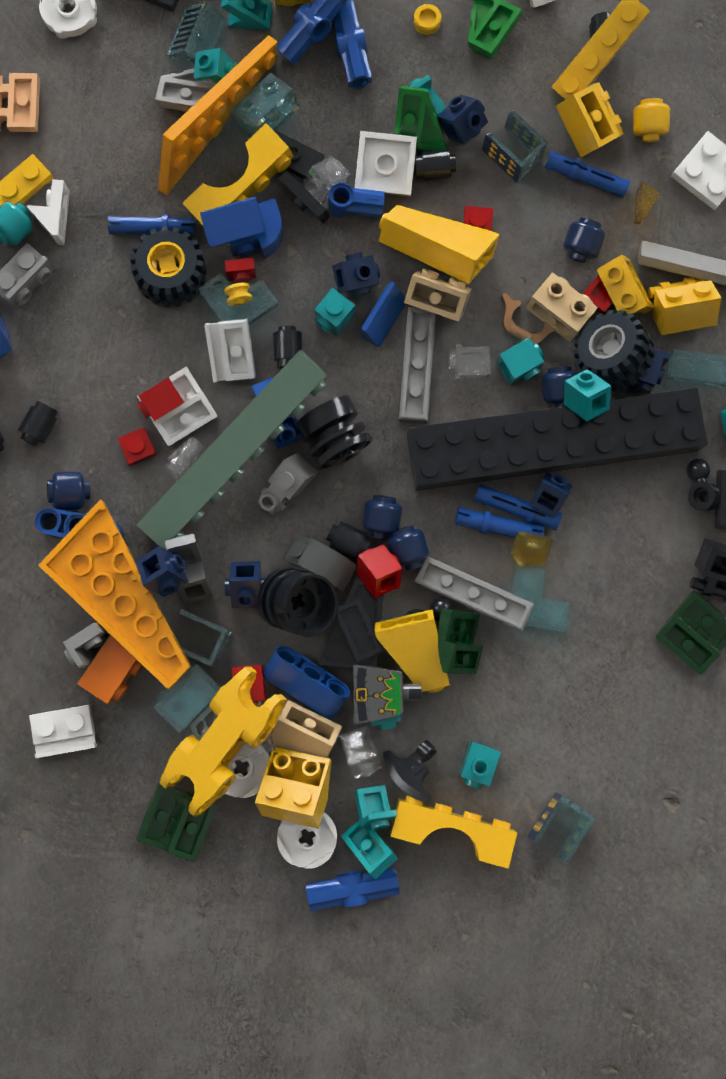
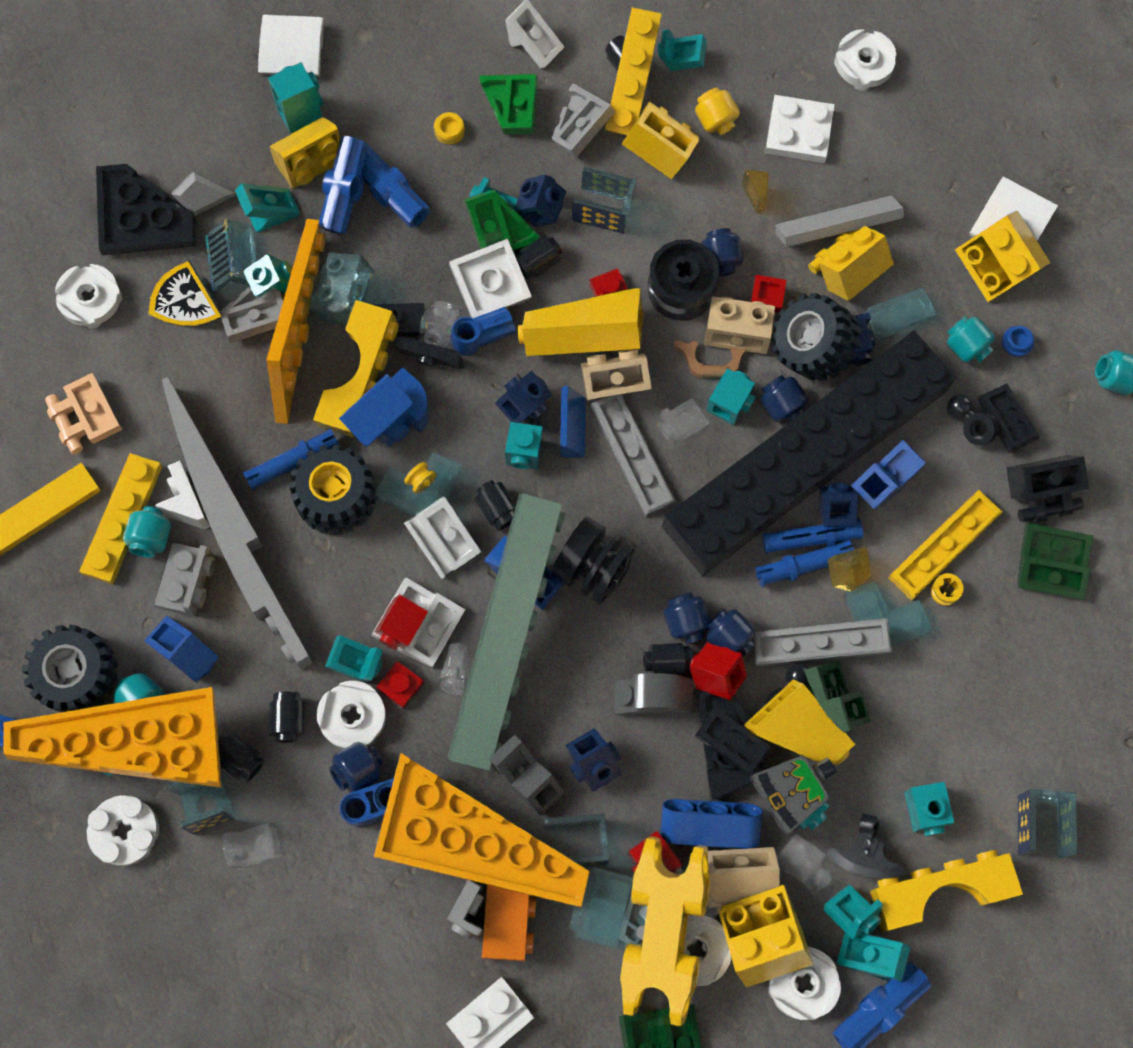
camera: 25 degrees left, 10 degrees down
(76, 253) = (232, 529): none -> light grey slope
(87, 432) = (341, 700): none -> white plate
(112, 408) = (354, 659): none -> teal bracket
(138, 49) = (183, 297): none -> shield
(162, 571) = (506, 789): dark blue brick -> none
(240, 270) = (406, 455): red plate -> none
(286, 483) = (574, 636): light grey brick -> none
(298, 602) = (657, 745): black wheel -> none
(535, 69) = (581, 120): none -> light grey wing
(538, 245) = (682, 279): none -> black wheel
(582, 172) = (683, 191): blue pin -> none
(587, 395) = (817, 390): teal brick -> none
(594, 598) = (954, 596): none -> yellow bush
(605, 494) = (889, 476): none -> blue brick
(619, 571) = (945, 545): none -> yellow tile
(624, 286) = (786, 274): yellow bracket -> none
(653, 53) = (682, 52): none -> teal bracket

